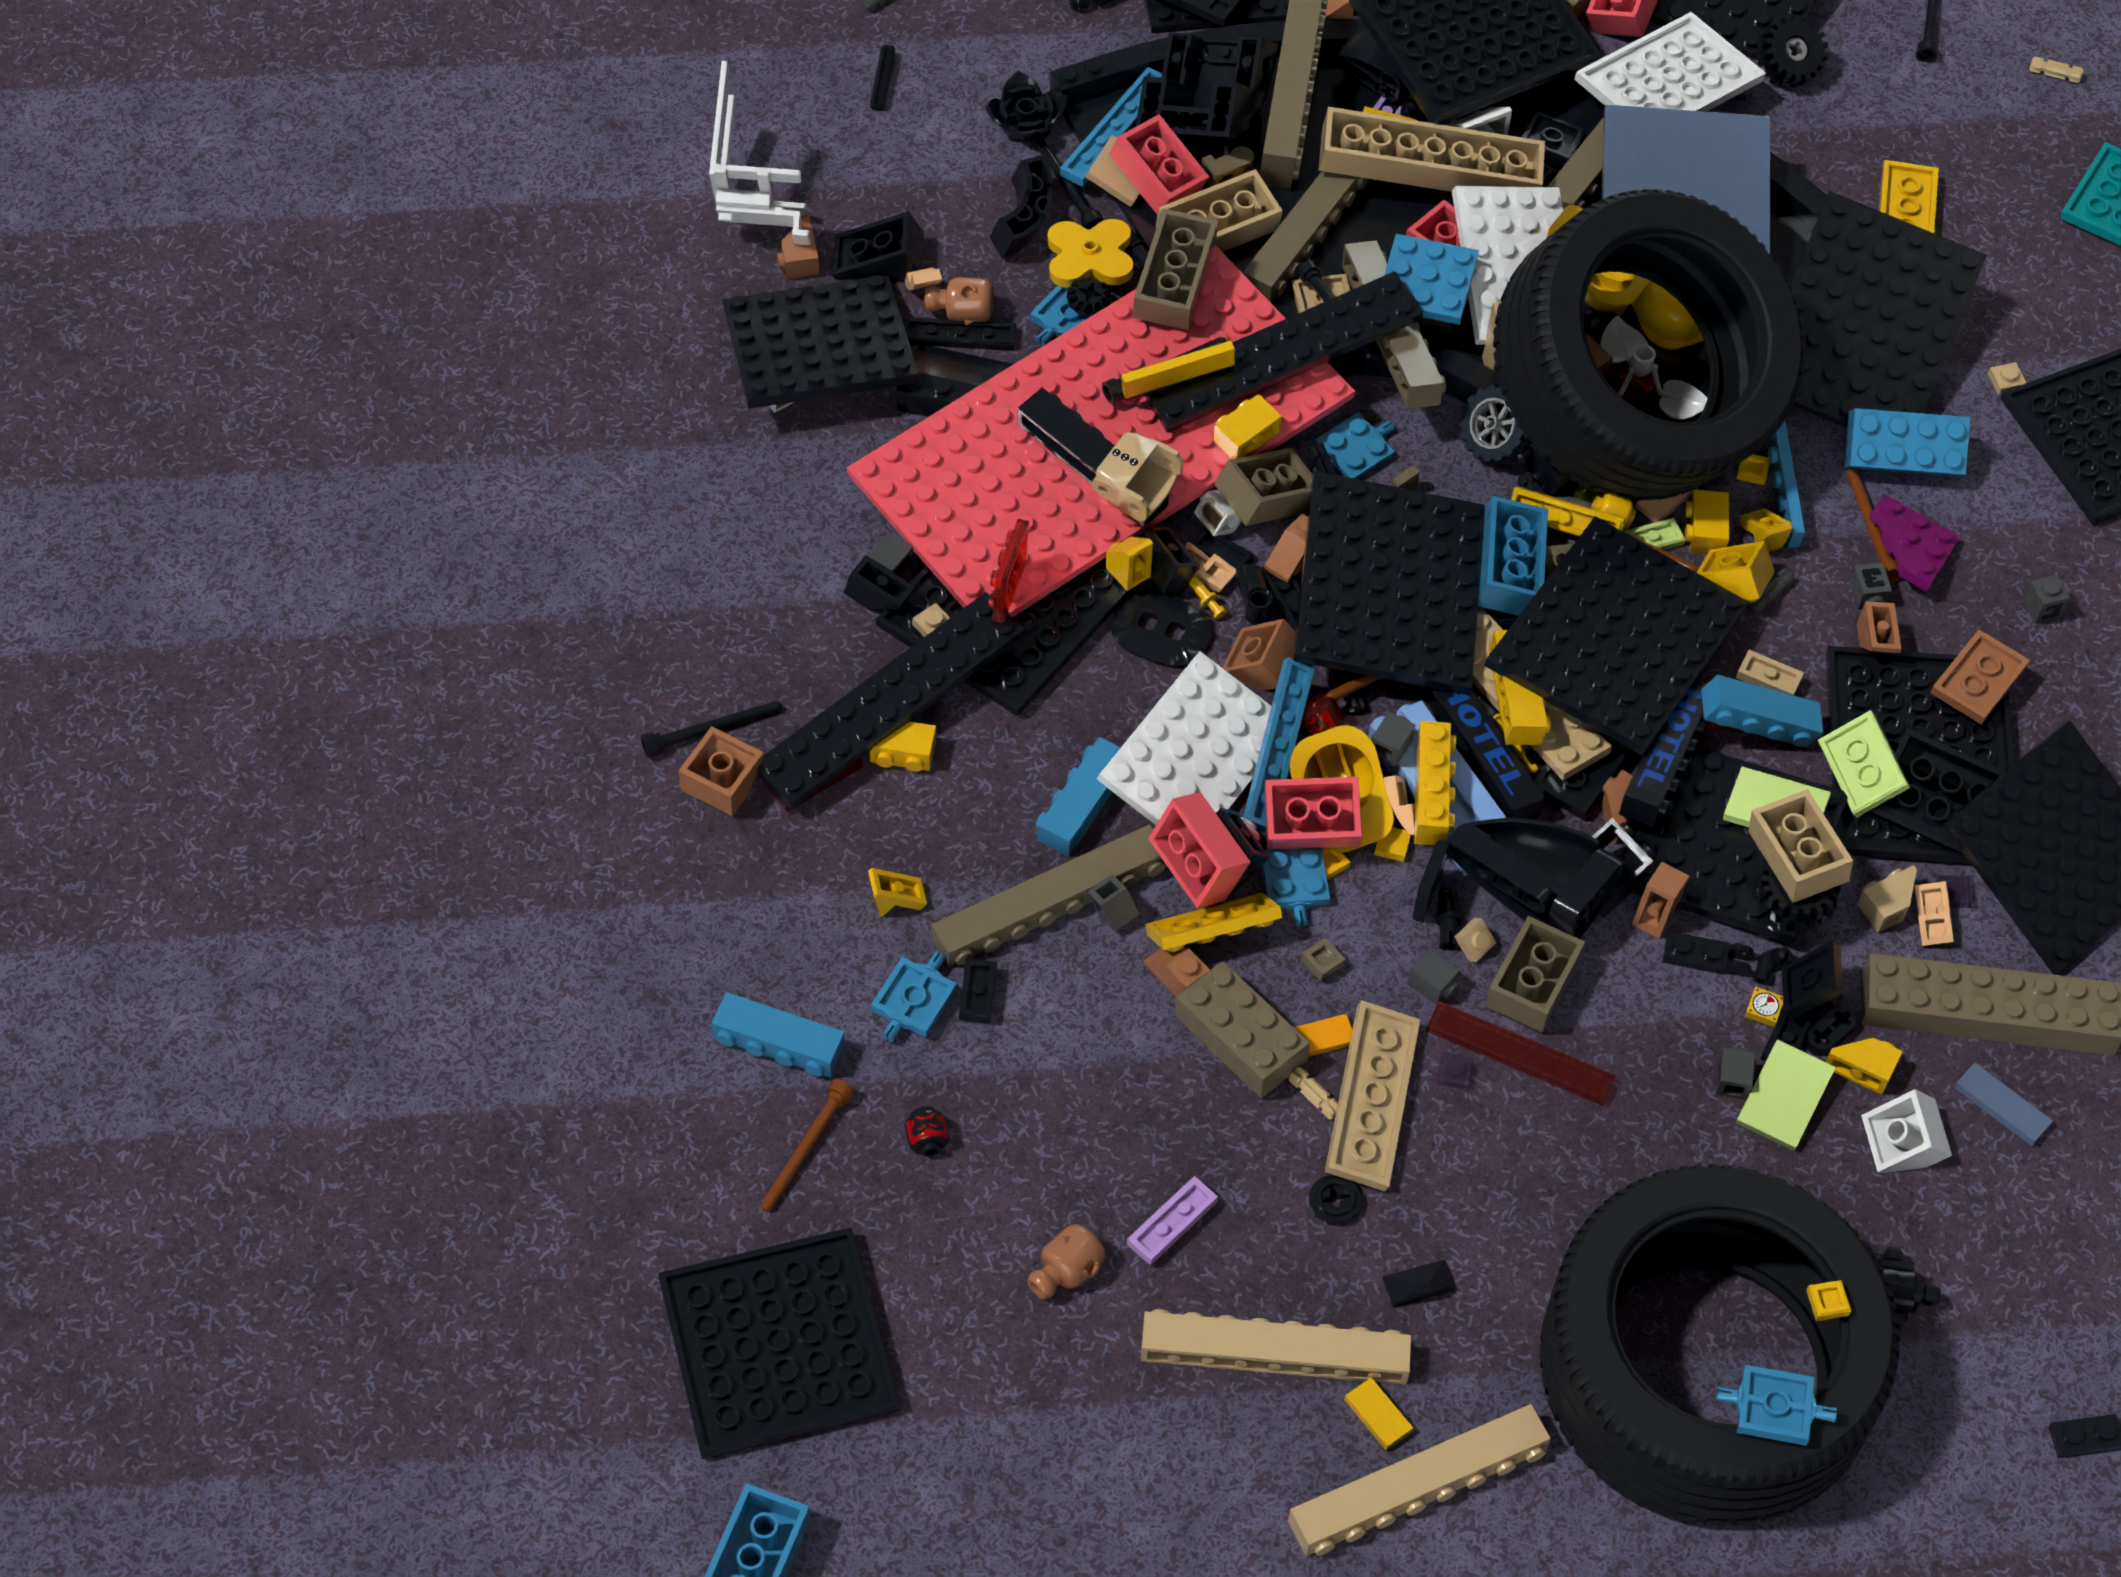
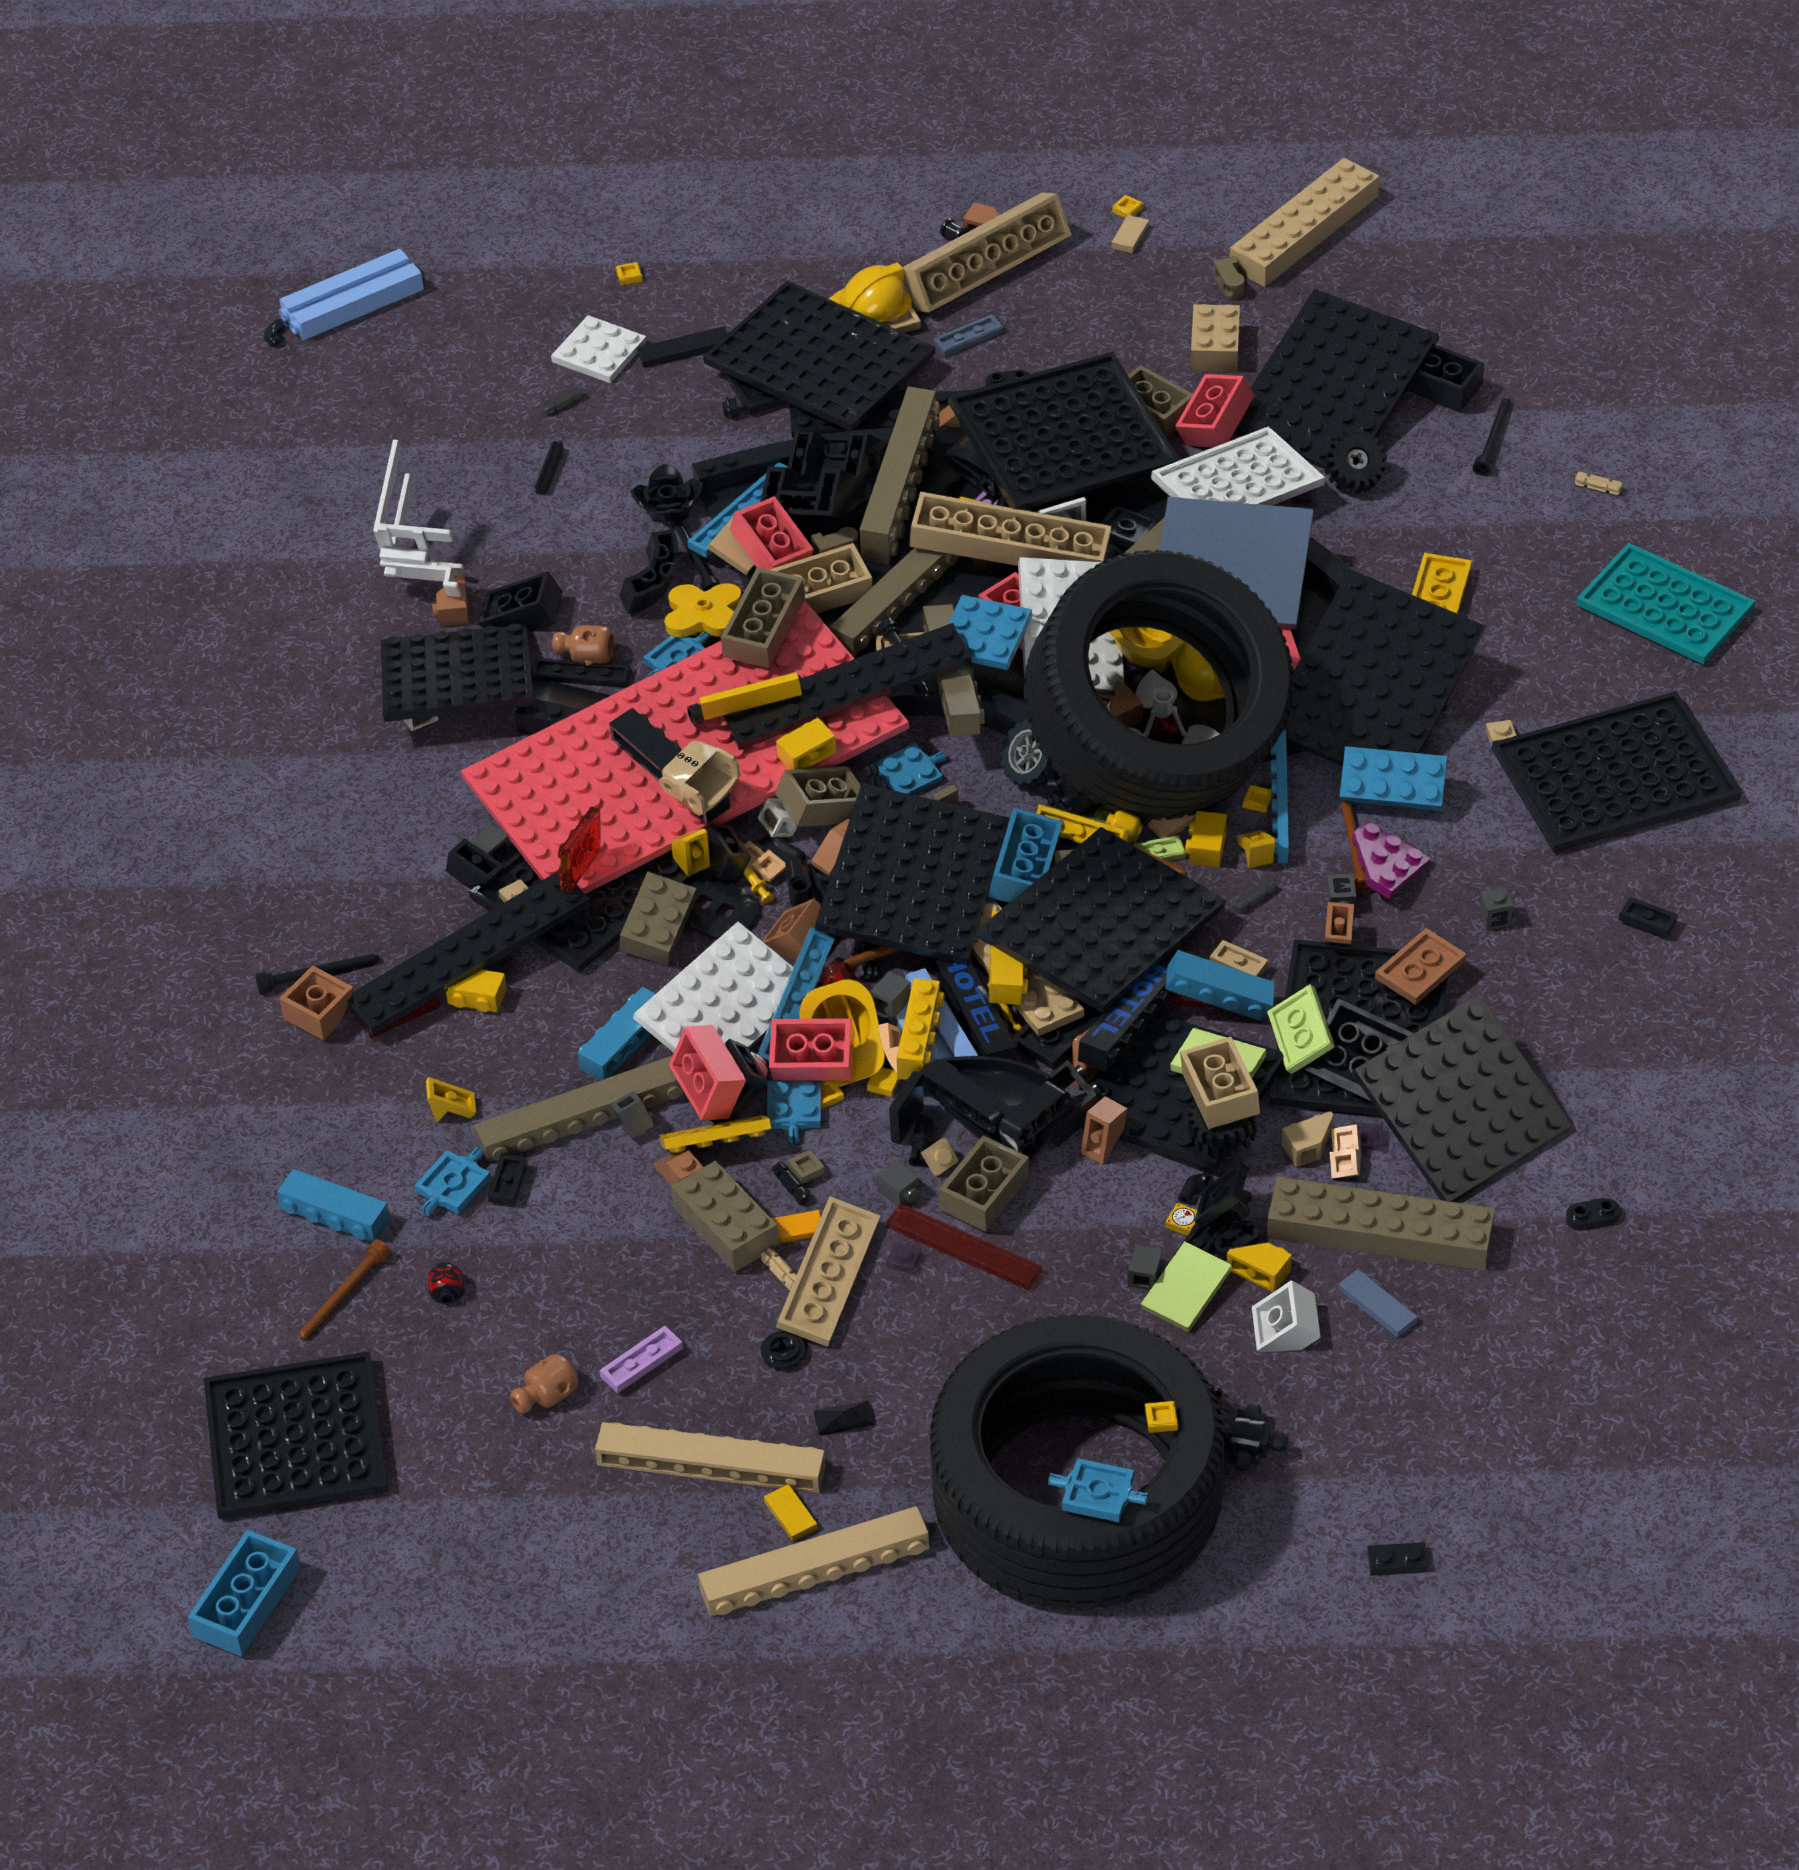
camera: 10 degrees right, 10 degrees down
(922, 278) = (553, 625): light nougat slope -> none
(1077, 292) = (683, 642): black gear -> none
(1103, 648) = (657, 919): none -> dark tan brick
(1308, 980) = (791, 1183): none -> black axle
(1706, 954) = (1141, 1177): black hinge -> none
(1739, 569) = (1226, 875): yellow slope -> none

